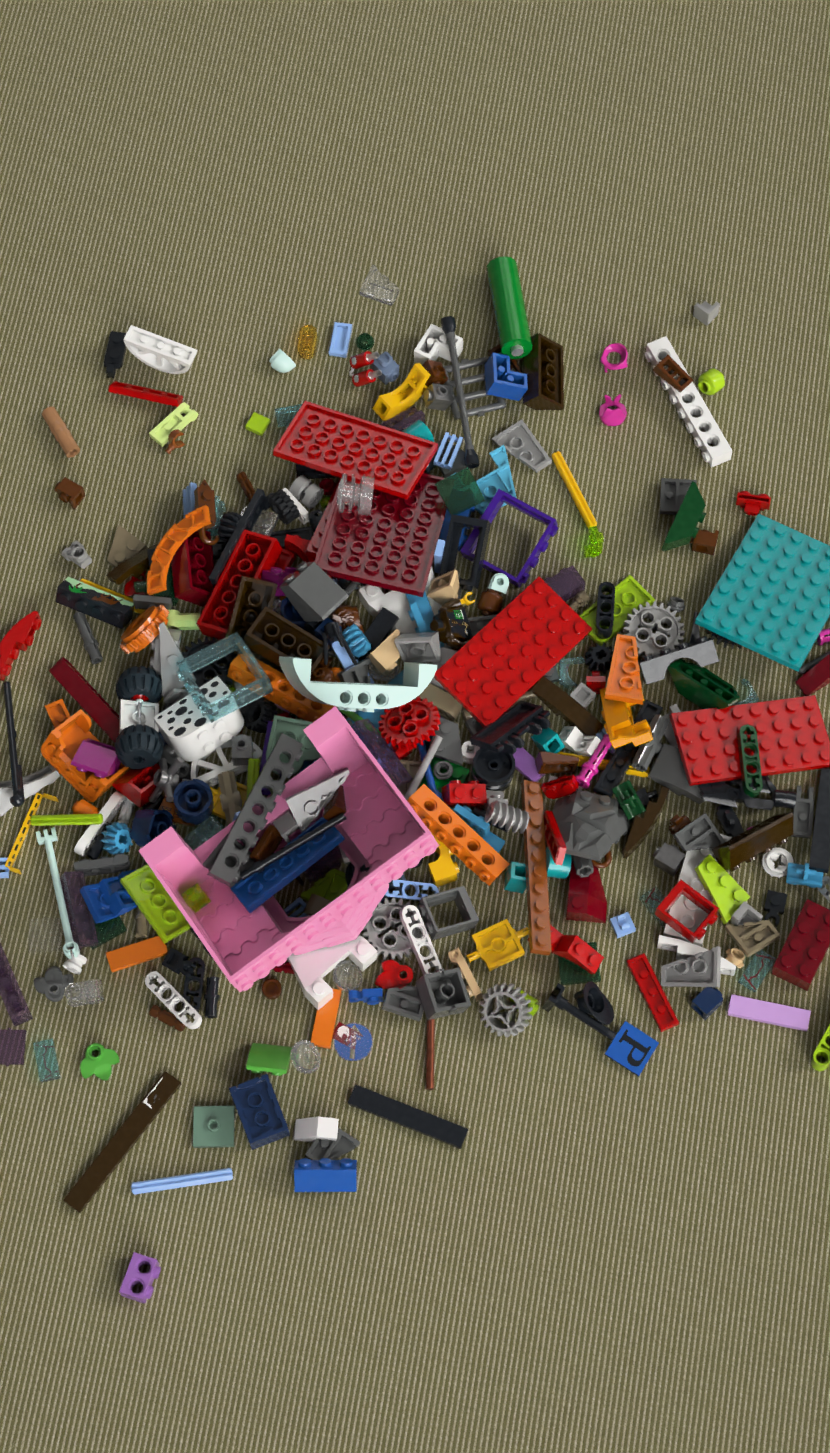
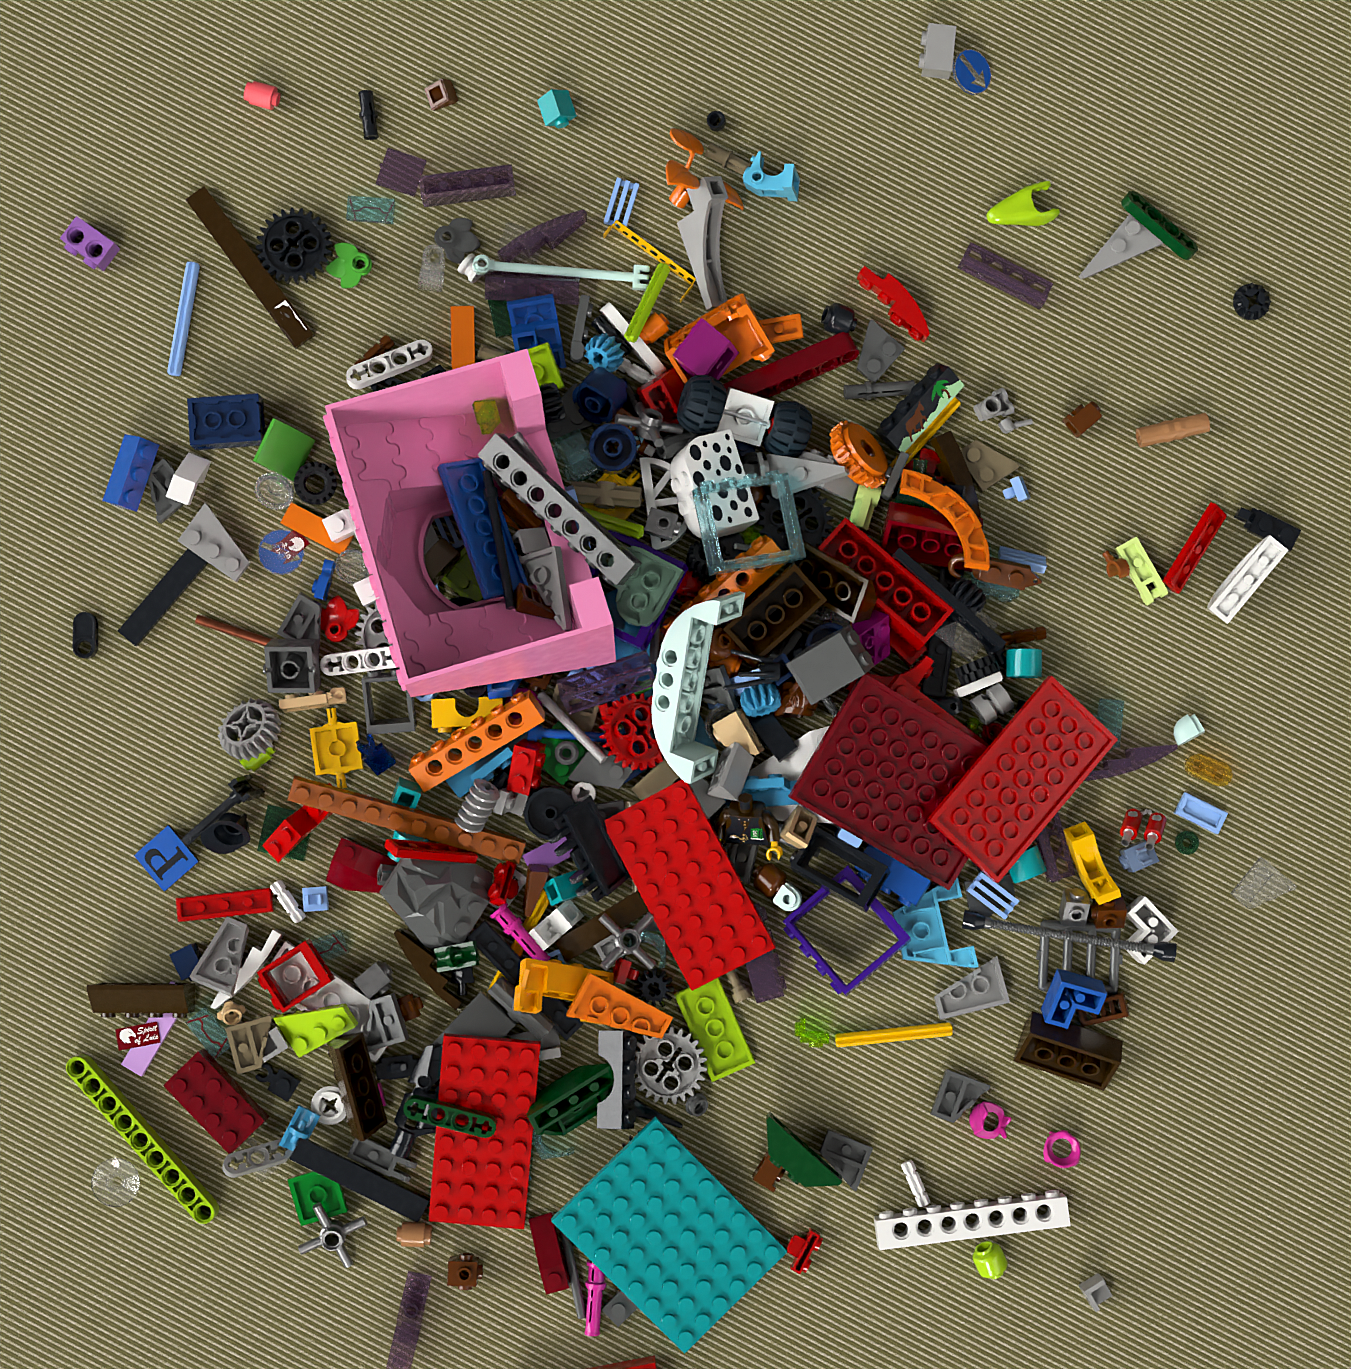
camera: 95 degrees right, 20 degrees up
(16, 770) = (726, 258): black bar -> none
(31, 911) = (550, 233): none -> clear purple slope
(40, 680) = (838, 318): none -> black head
(57, 646) = (877, 352): none -> dark grey wing
(89, 542) = (1007, 425): none -> light grey hand
(103, 1092) = (279, 233): none -> black gear
(137, 520) = (1018, 490): none -> light blue tile
(213, 1126) = (233, 369): sand green plate -> none
(257, 424) = (1110, 674): lime tile -> none
(268, 478) = (1024, 663): none -> teal piece
(288, 1017) = (319, 469): none -> black tyre
(315, 388) = (1135, 759): none -> clear purple slope
(356, 494) = (947, 756): clear wheel -> none
(364, 1090) = (213, 544): none -> light grey wing
(460, 492) = (921, 888): clear green tile -> none
(467, 1174) = (85, 629): none -> black piece
(493, 911) = (376, 757): none -> clear blue plate
(509, 307) = (1173, 1038): green piece -> none
(571, 681) = (620, 948): none -> flat silver bar
(602, 436) = (956, 1095): none -> dark grey wing
(605, 602) = (720, 1023): black beam -> none
(632, 944) = (287, 901): none -> white axle
(676, 445) = (915, 1183): none -> white axle
(677, 370) = (1013, 1221): reddish brown slope -> none
(748, 1025) = (142, 998): none -> dark brown slope
(780, 1023) = (137, 1036): none -> dark red sticker

